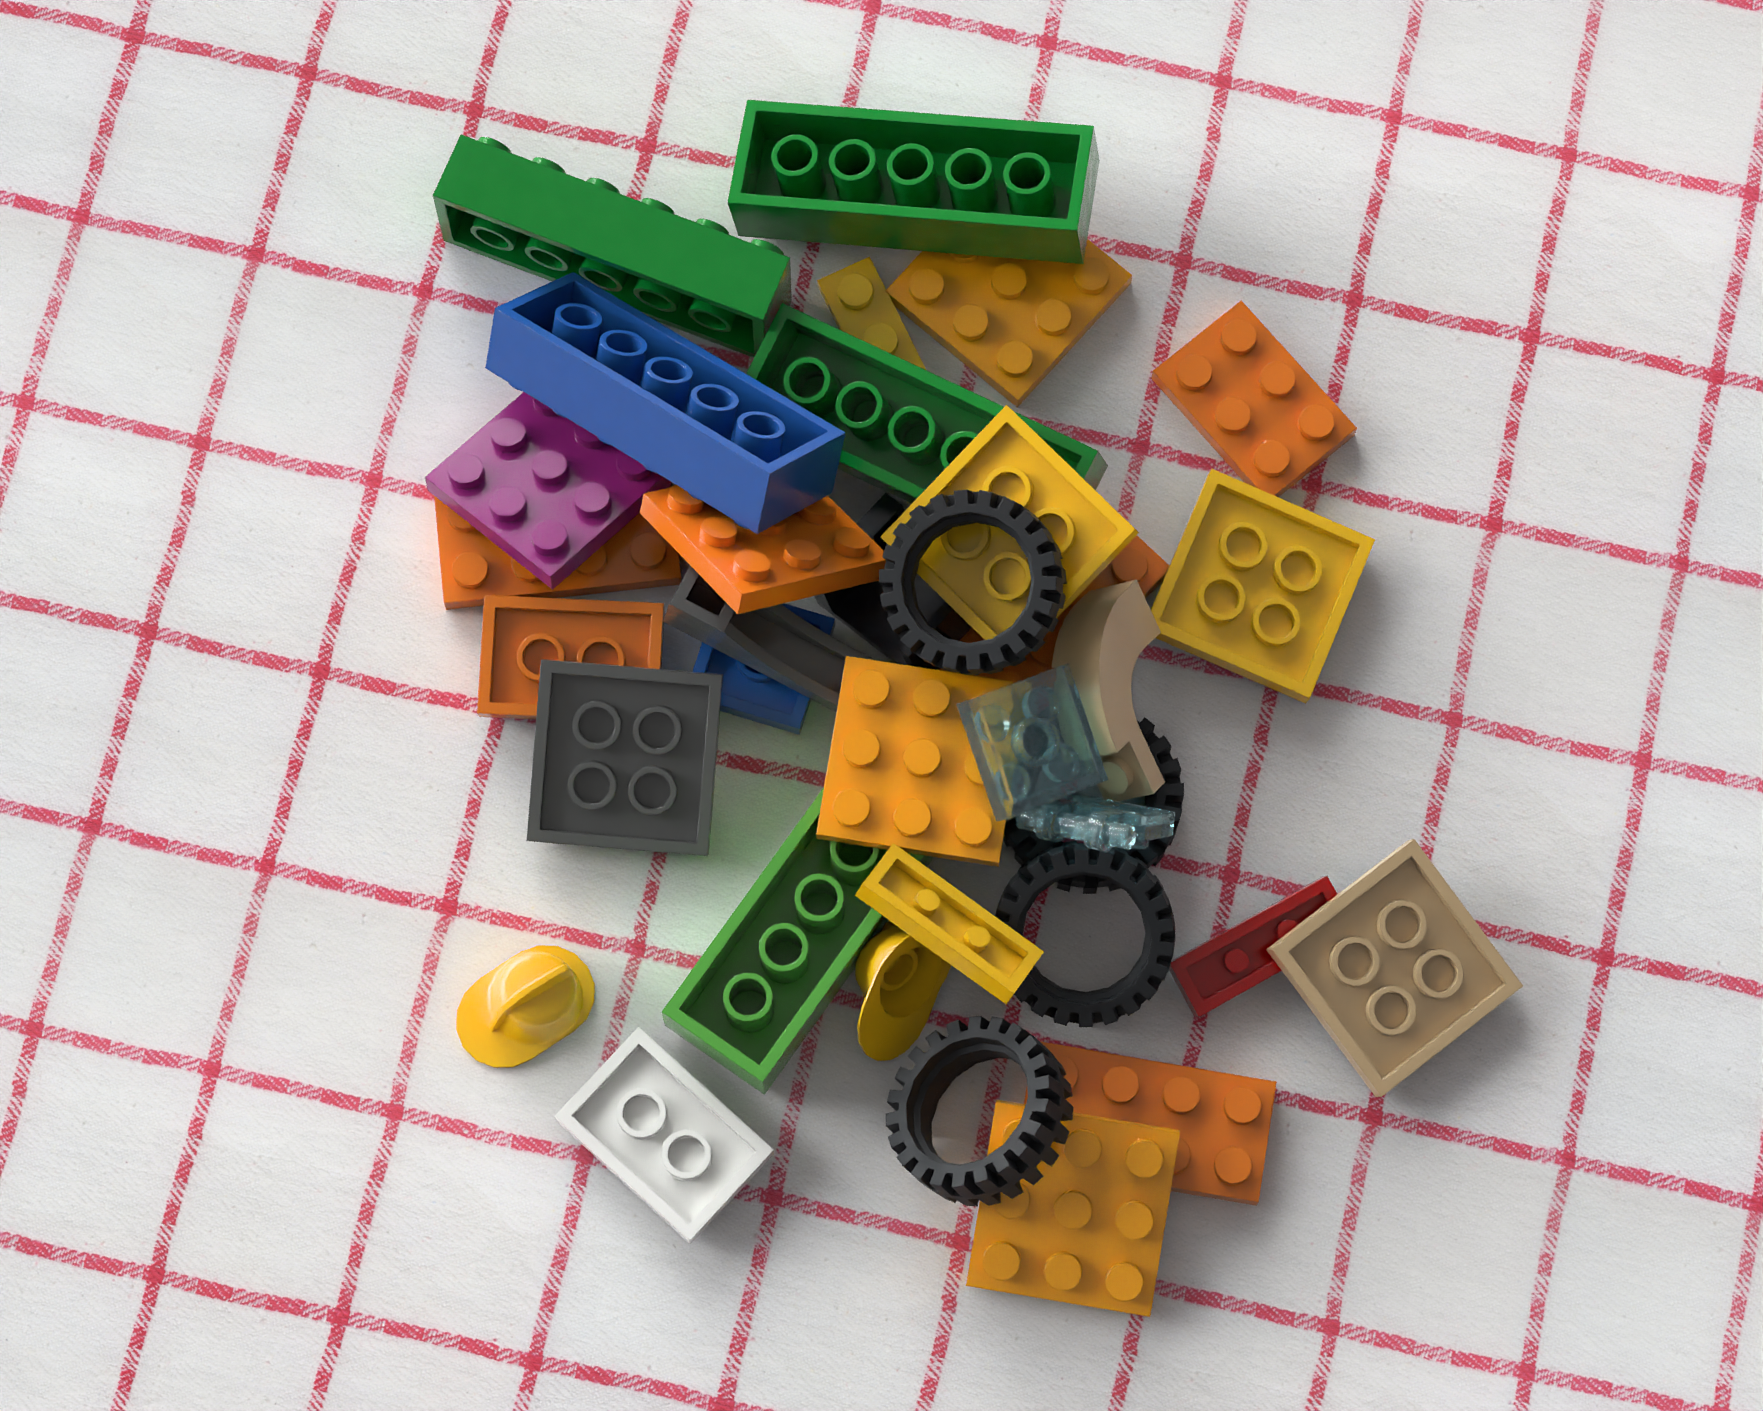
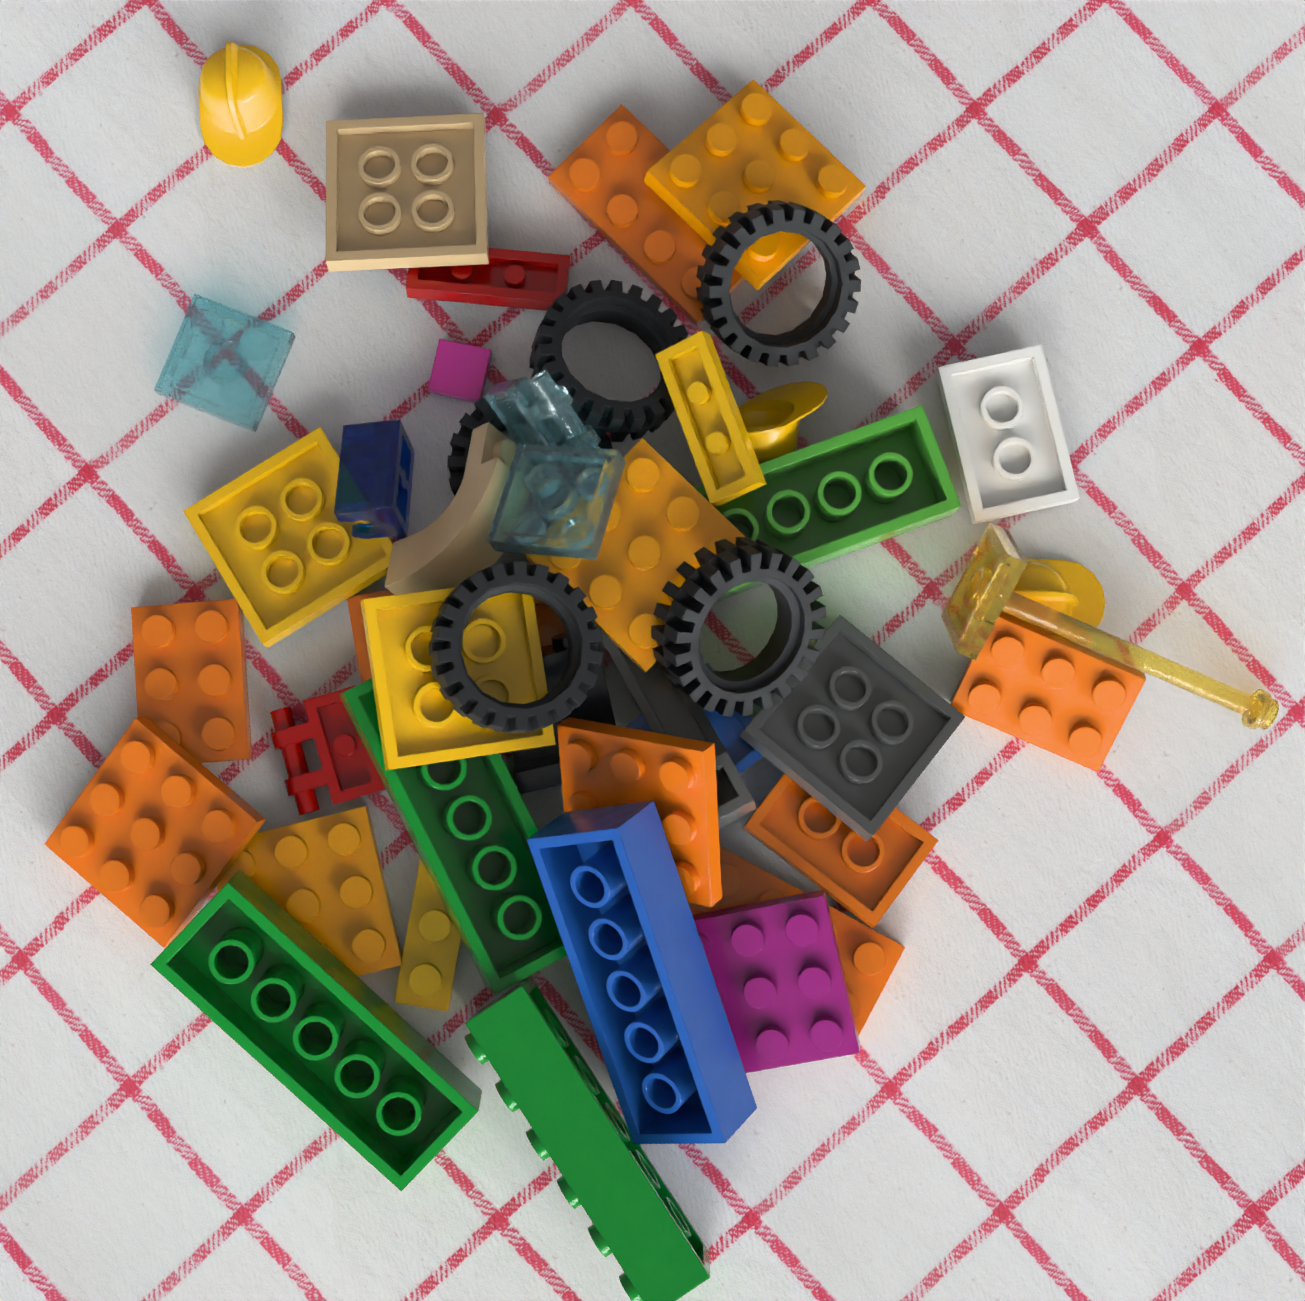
camera: 145 degrees left, 10 degrees up
(466, 914) = (1048, 691): none -> orange plate
(582, 950) = (988, 590): none -> clear yellow tile
(837, 766) = (691, 603): none -> black tyre
(1067, 416) = (342, 754): none -> red plate
(1185, 253) = (154, 831): none -> orange plate
(1221, 680) = (375, 479): none -> clear blue hinge
(1222, 844) = (460, 371): none -> dark pink tile
(1444, 703) = (225, 362): none -> clear light blue plate
(1620, 956) = (240, 104): none -> yellow piece

